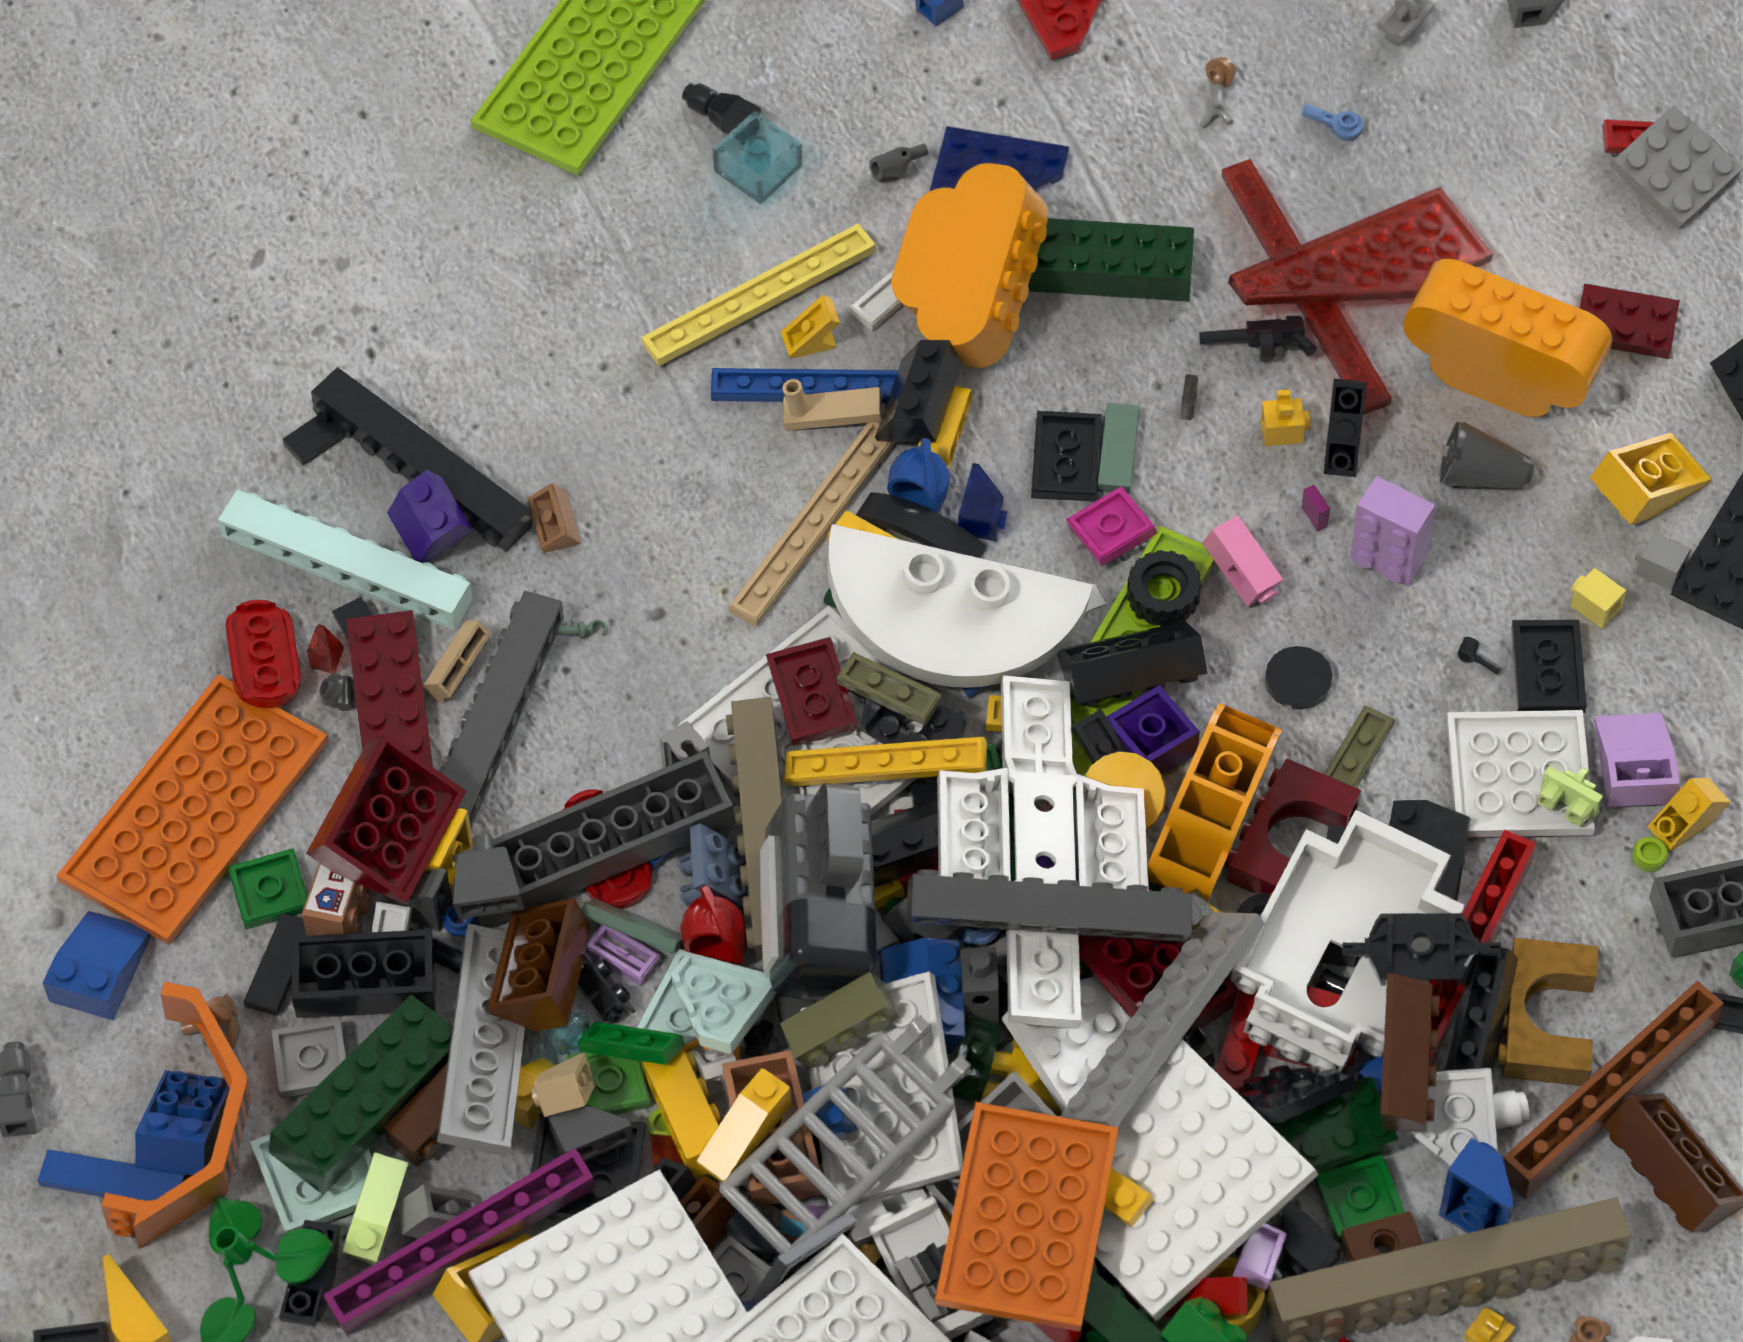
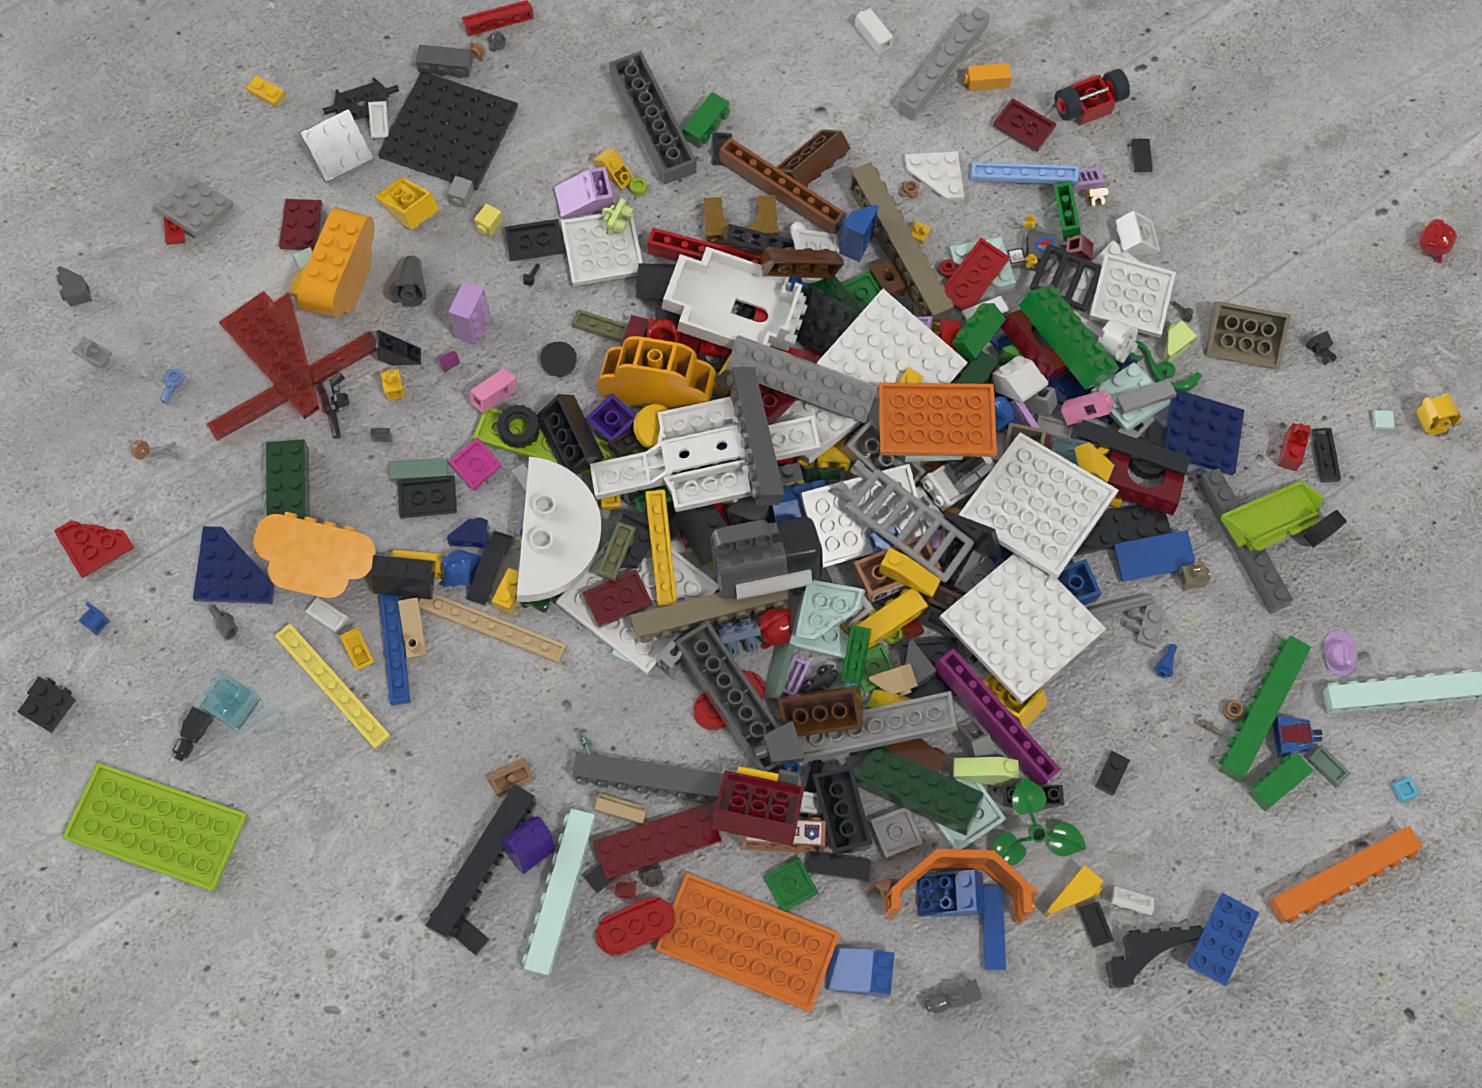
camera: 105 degrees left, 10 degrees up
(839, 1020) = (835, 539): olive brick -> none
(1292, 812) = (663, 330): none -> red helmet
(1448, 958) = (732, 276): black plate -> none

